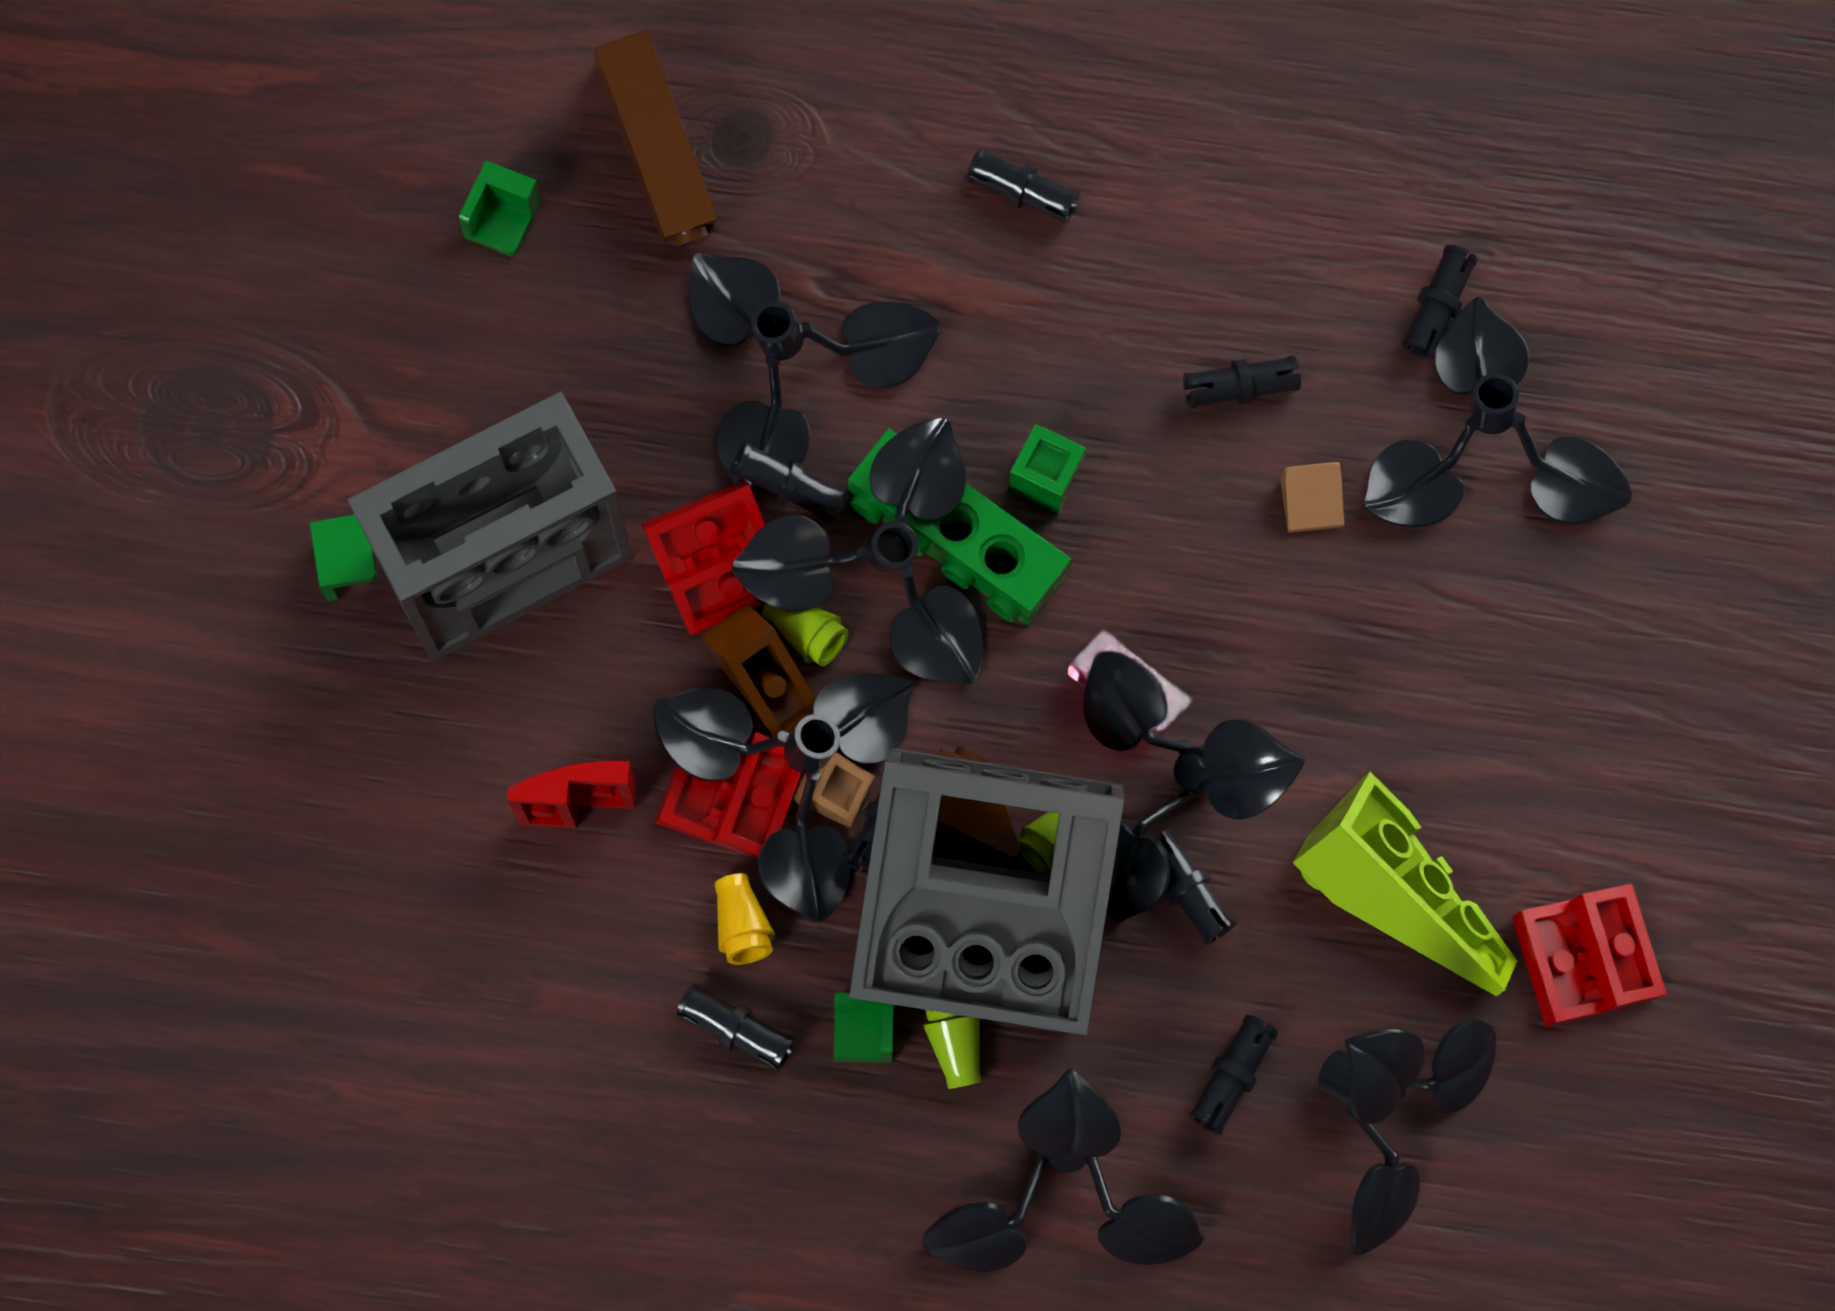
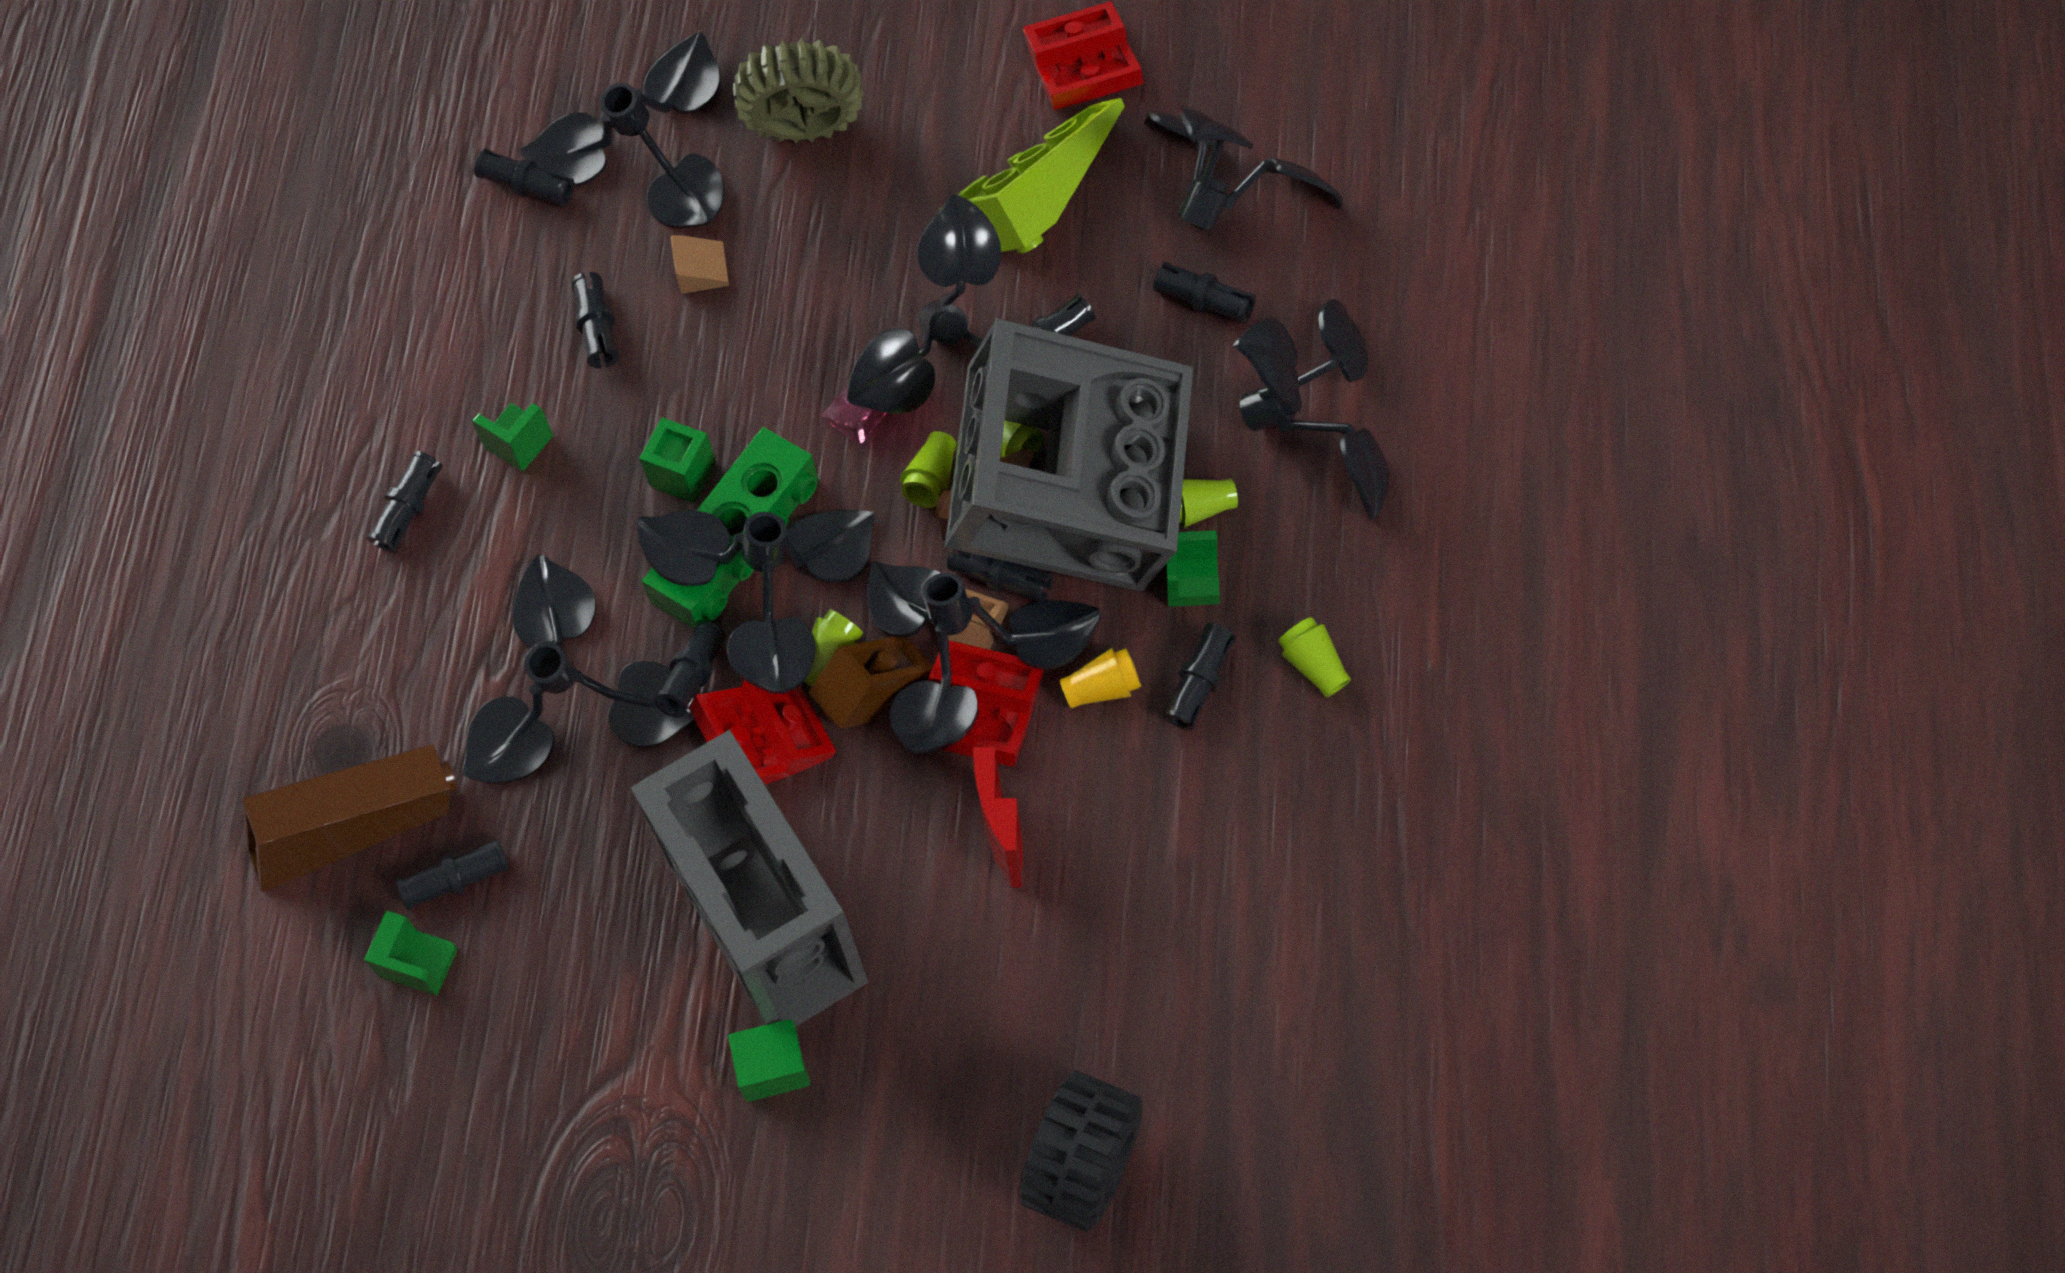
camera: 85 degrees left, 10 degrees down
(196, 855) = (1081, 1151): none -> black tyre
(584, 247) = (452, 874): none -> black pin
(748, 1157) = (1314, 655): none -> lime cone
(1016, 744) = (929, 471): none -> lime cone
(1098, 297) = (515, 434): none -> green panel
(1522, 606) = (798, 91): none -> olive gear

